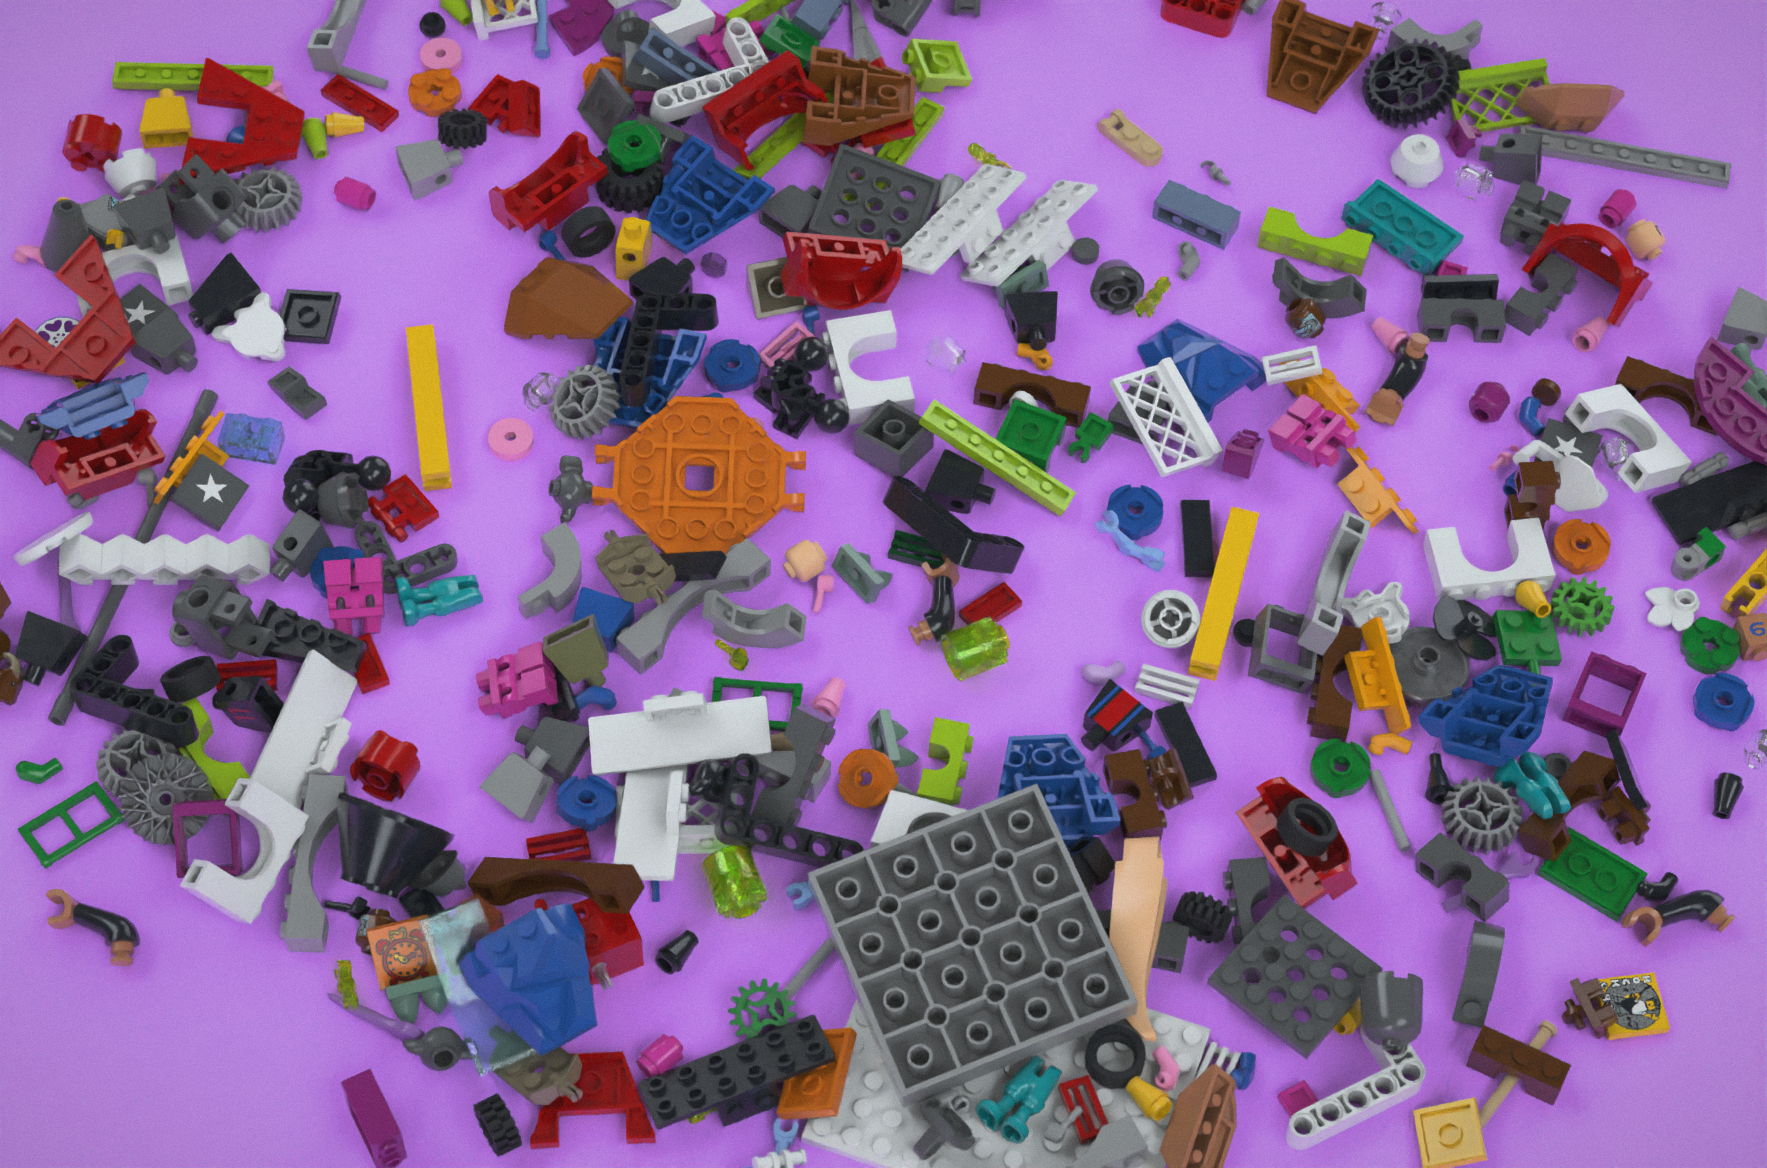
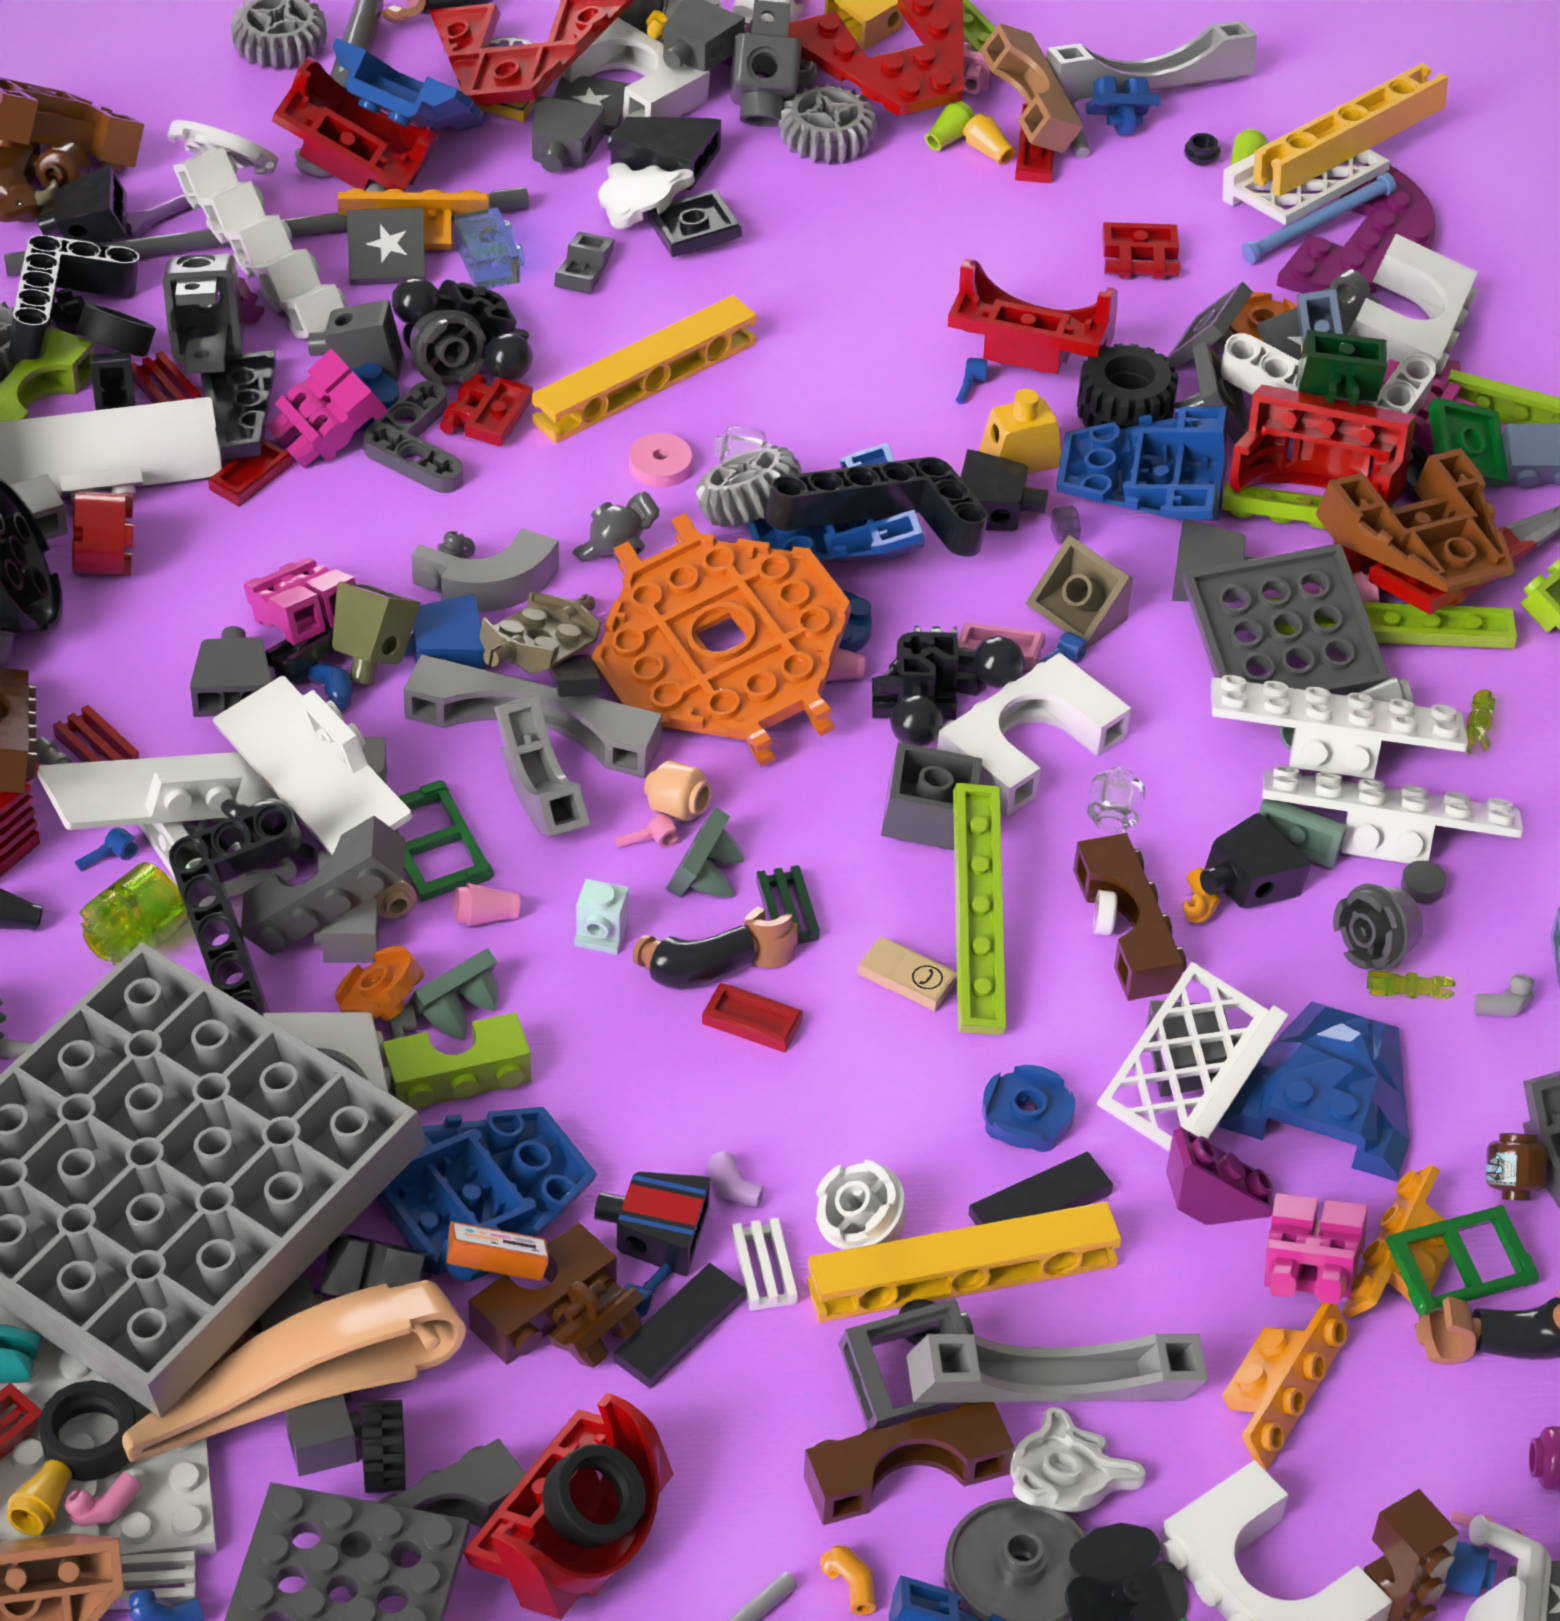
camera: 60 degrees right, 10 degrees down
(304, 69) = (1019, 60): none -> medium nougat arch
(354, 193) = (898, 187): dark pink brick -> none
(365, 39) = (1122, 109): none -> blue hips
(426, 166) = (987, 226): light grey torso -> none
(434, 80) = (1121, 191): orange plate -> none
(435, 48) = (1164, 177): bright pink piece -> none
(446, 596) = (385, 494): teal piece -> none
(462, 128) = (1066, 227): black tyre -> none
(521, 783) = (152, 661): light grey torso -> none
(524, 109) = (1146, 267): red slope -> none
(525, 581) = (457, 545): none -> dark grey arm
(564, 300) = (889, 405): dark orange wedge -> none
(580, 223) = (1010, 365): black tyre -> none
(581, 814) = (151, 724): blue plate -> none
(634, 157) = (1138, 360): green plate -> none
(727, 61) = (1342, 366): none -> dark green brick
(736, 378) = (940, 588): blue plate -> none
(739, 656) = (489, 793): clear neon green hand -> none
(829, 268) = (1139, 624): red piece -> none
(878, 644) = (601, 916): none -> light aqua brick
(948, 533) = (795, 922): black beam -> none
(958, 484) = (915, 895): black torso -> none
(975, 648) = (659, 1013): clear neon green gear -> none
(1005, 517) = (907, 973): none -> tan tile
(1032, 433) = (1051, 932): green panel -> none
(1091, 434) = (1116, 1008): green plate -> none
(1112, 800) = (497, 1251): none -> orange slope
(1148, 555) = (965, 1121): light blue piece -> none
(1294, 369) = (1403, 1178): white tile -> none
(1335, 782) = (758, 1553): green plate -> none
(1364, 404) = (1449, 1229): none -> green window
(1376, 679) = (932, 1493): light orange bracket -> none

